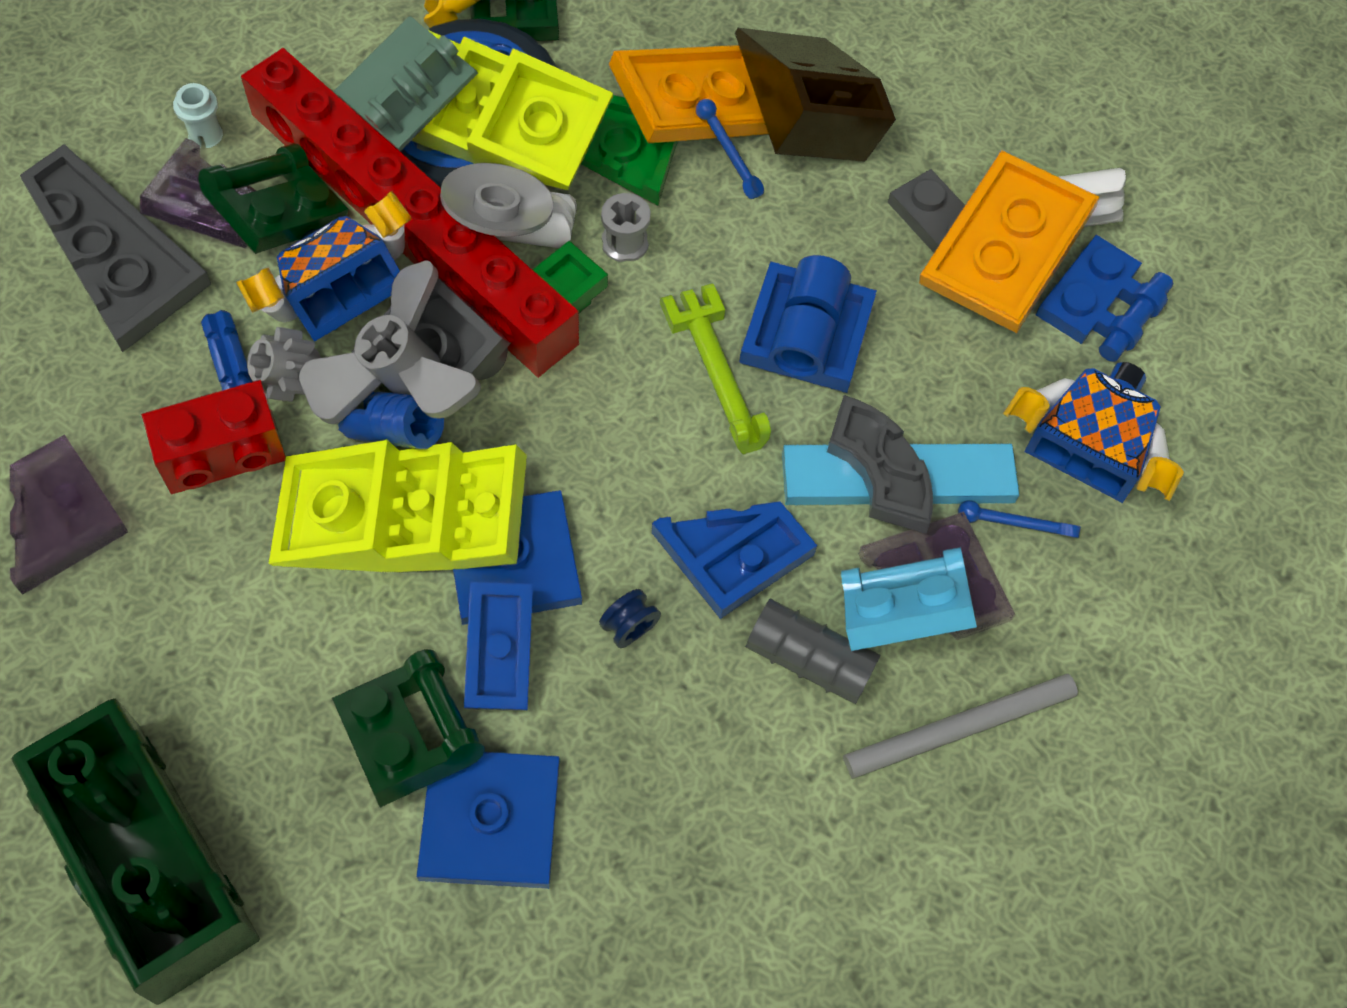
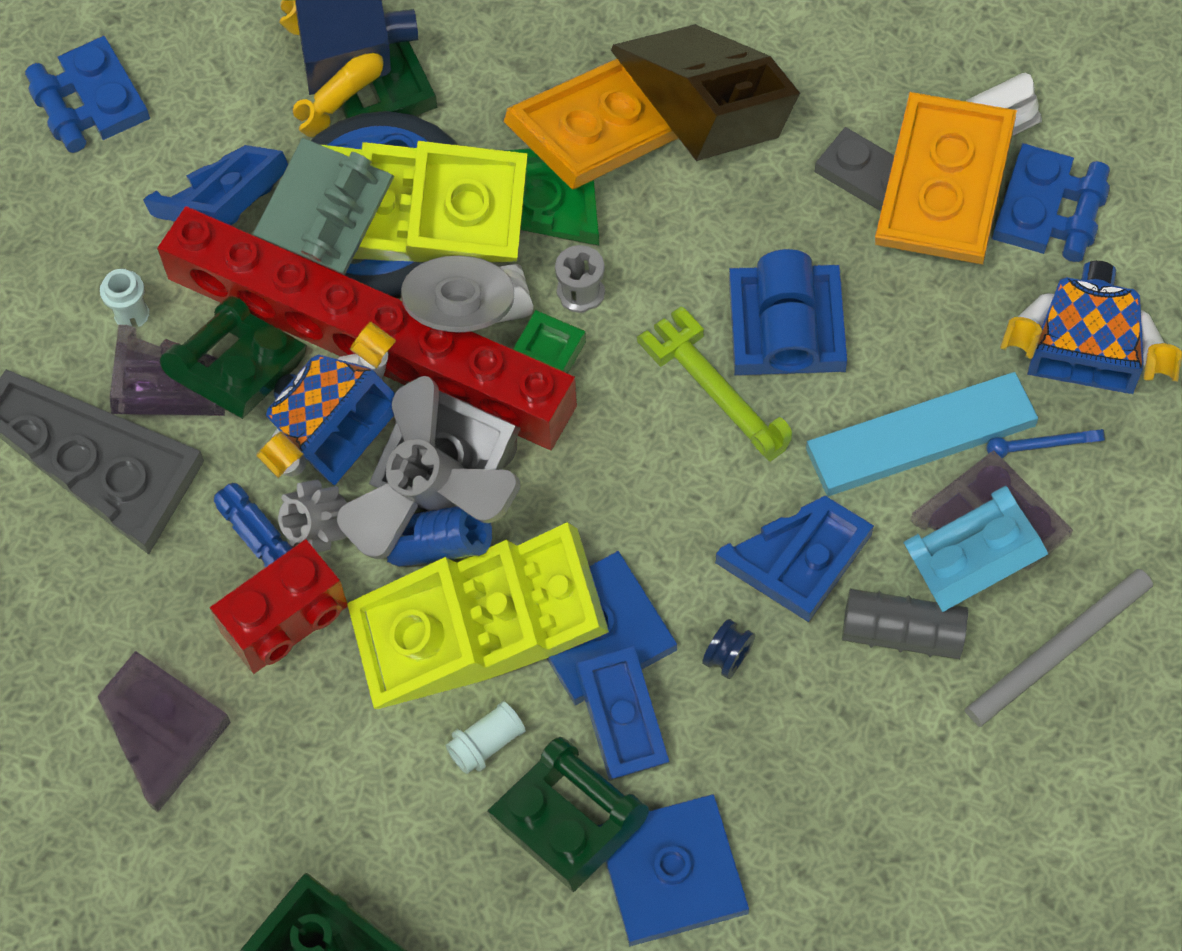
camera: 10 degrees left, 0 degrees up
(331, 47) = (225, 186): none -> blue wing
(359, 626) = (484, 738): none -> light aqua pin
(751, 185) = (680, 196): blue hinge -> none
(887, 463) = (907, 427): dark grey tile -> none

